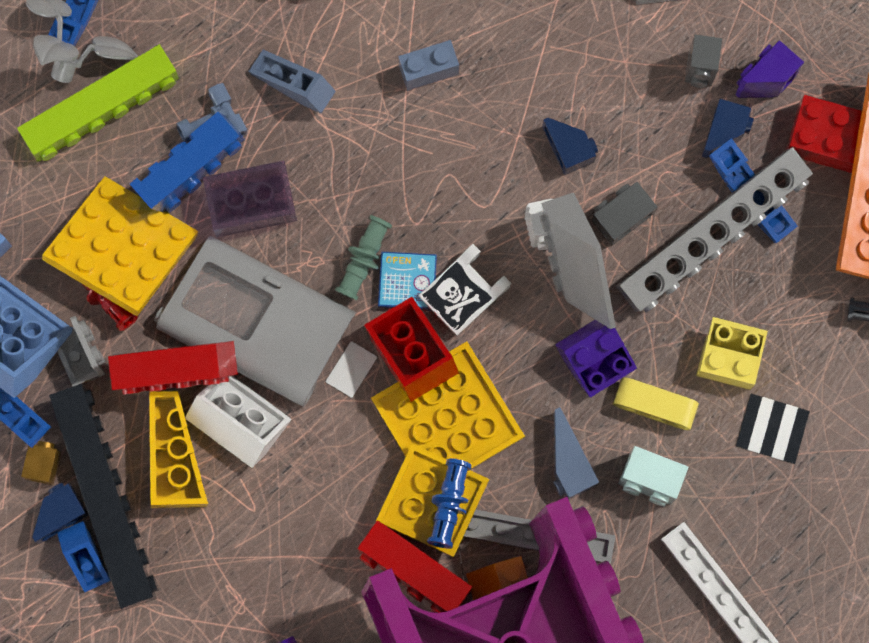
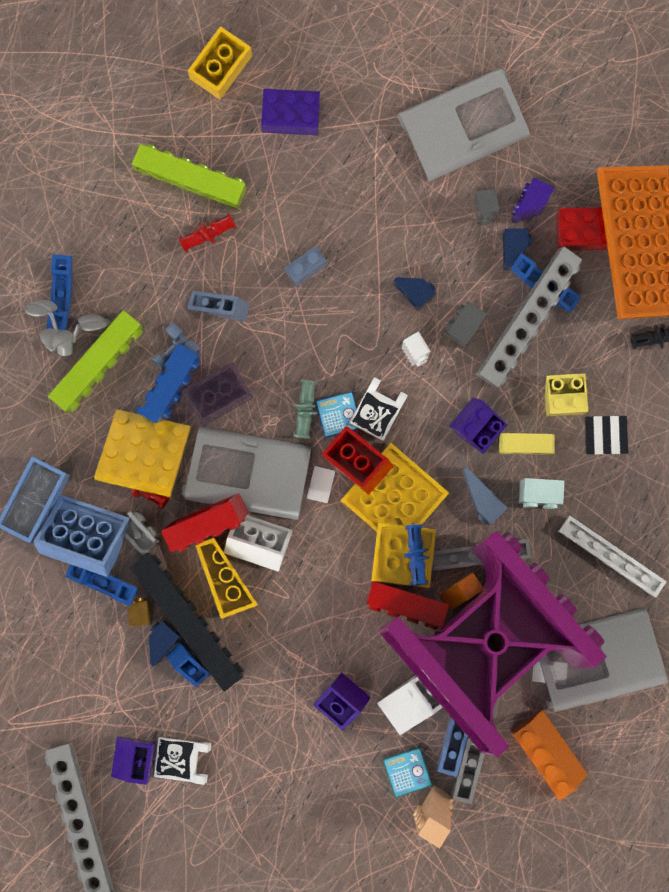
camera: 15 degrees left, 5 degrees up
(576, 258) = (448, 367): light grey slope -> none

